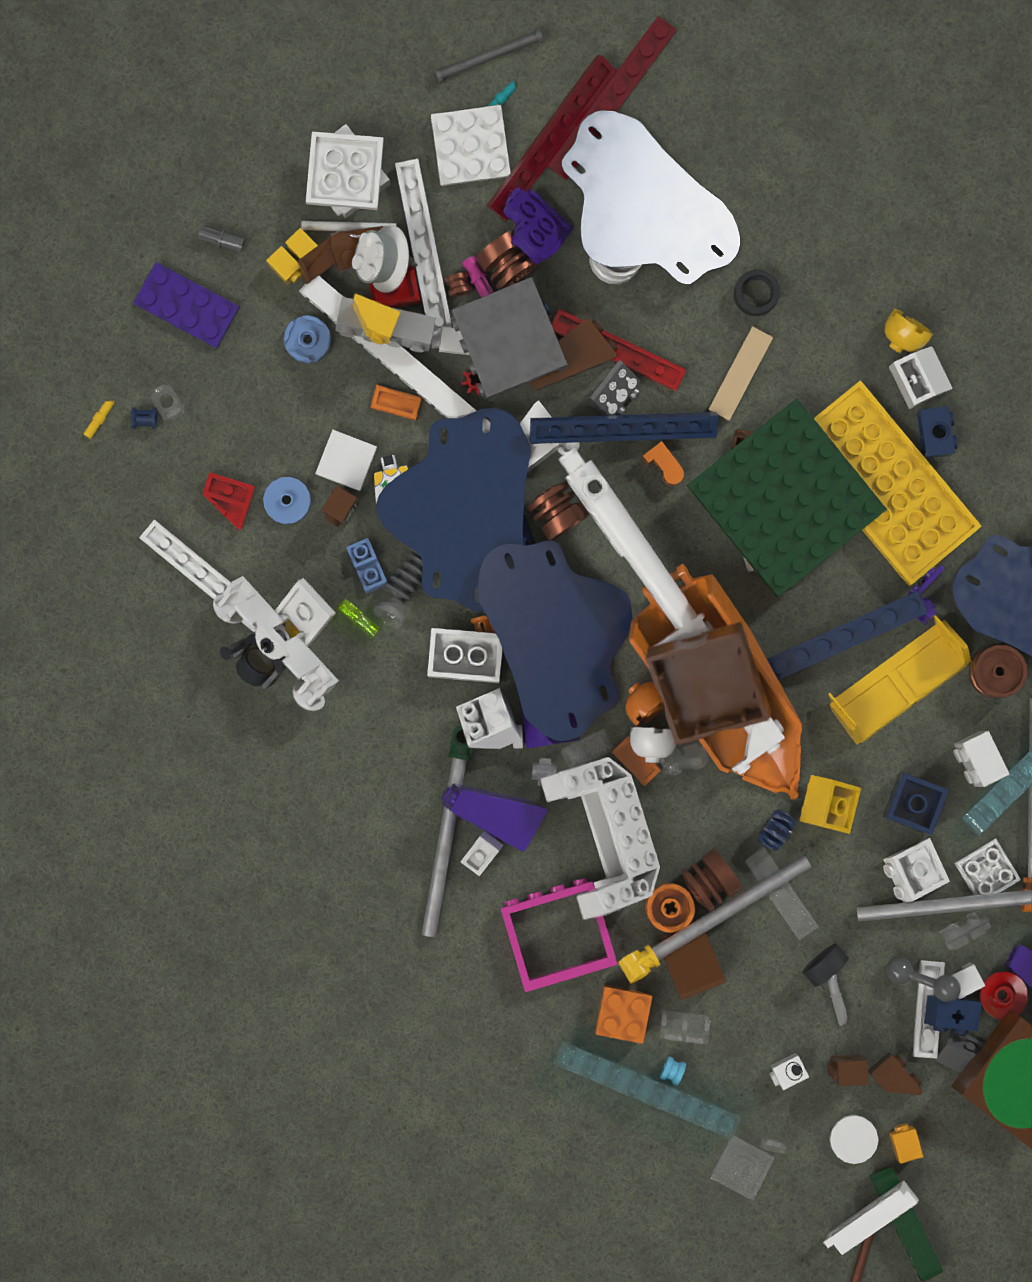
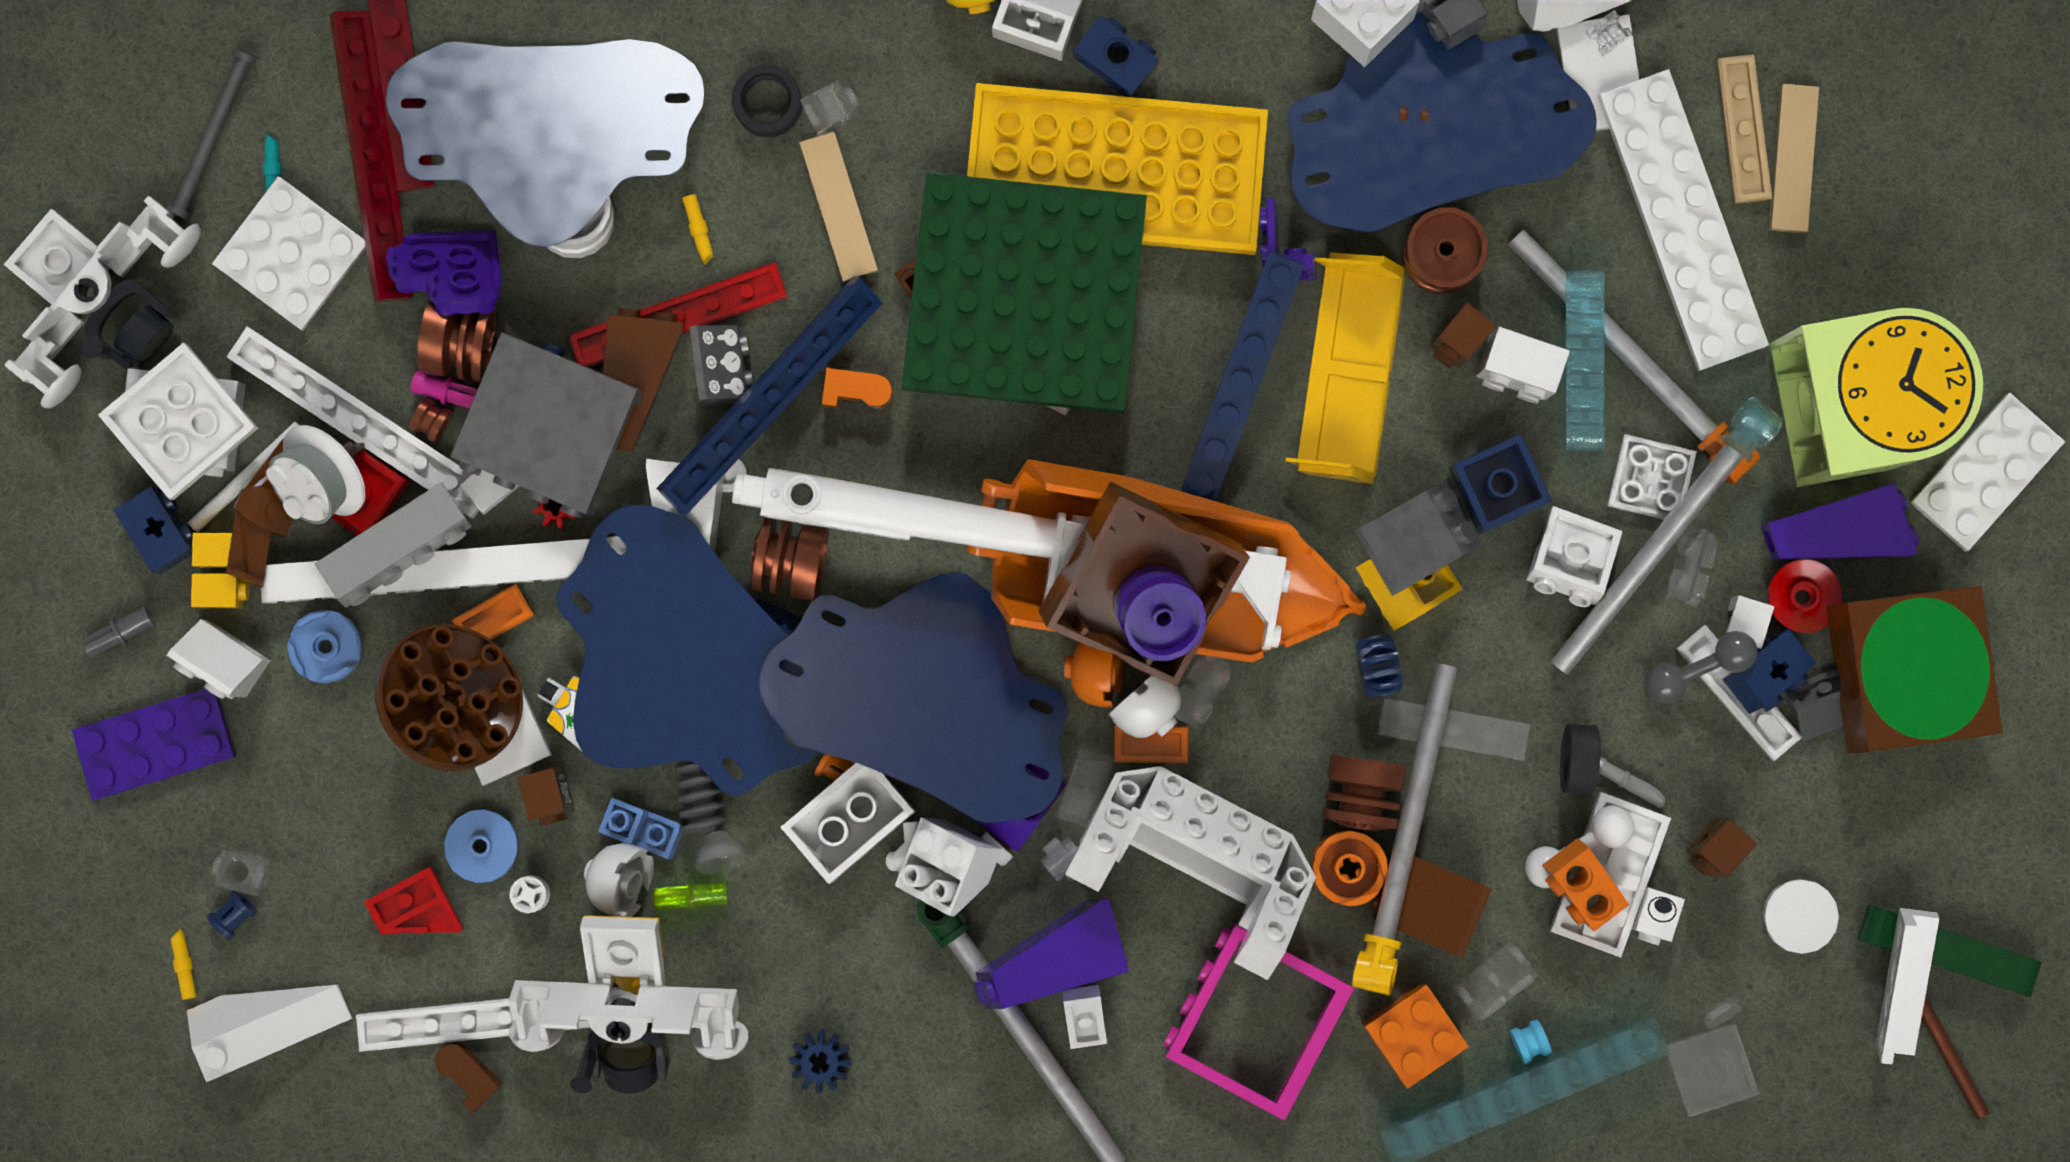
camera: 35 degrees left, 0 degrees up
(102, 477) = (253, 1025): none -> white wedge
(178, 597) = (468, 1072): none -> reddish brown leg
(254, 295) = (219, 659): none -> white slope
(283, 196) = (139, 520): none -> dark blue brick
(283, 542) = (523, 897): none -> white wheel
(334, 576) = (617, 877): none -> white cylinder
(341, 418) = (448, 697): none -> reddish brown bracket
(348, 757) = (807, 1062): none -> dark blue gear
(363, 48) = (64, 265): none -> white piece
(376, 319) = (376, 551): yellow slope -> none
(467, 696) = (895, 859): none -> white arm
(667, 319) = (698, 227): none -> yellow piece
(702, 704) = (1159, 612): none -> dark purple wheel
(774, 1024) = (1589, 881): none -> orange brick
(782, 324) = (830, 107): none -> clear brick
(786, 1031) = (1627, 867): none -> white plate
(808, 1009) = (1610, 827): none -> white piece
(854, 789) = (1418, 537): none -> flat silver slope
(892, 1076) = (1776, 806): reddish brown slope -> none
(905, 1143) = (1861, 864): light orange brick -> none
(966, 718) = (1462, 337): none -> reddish brown brick

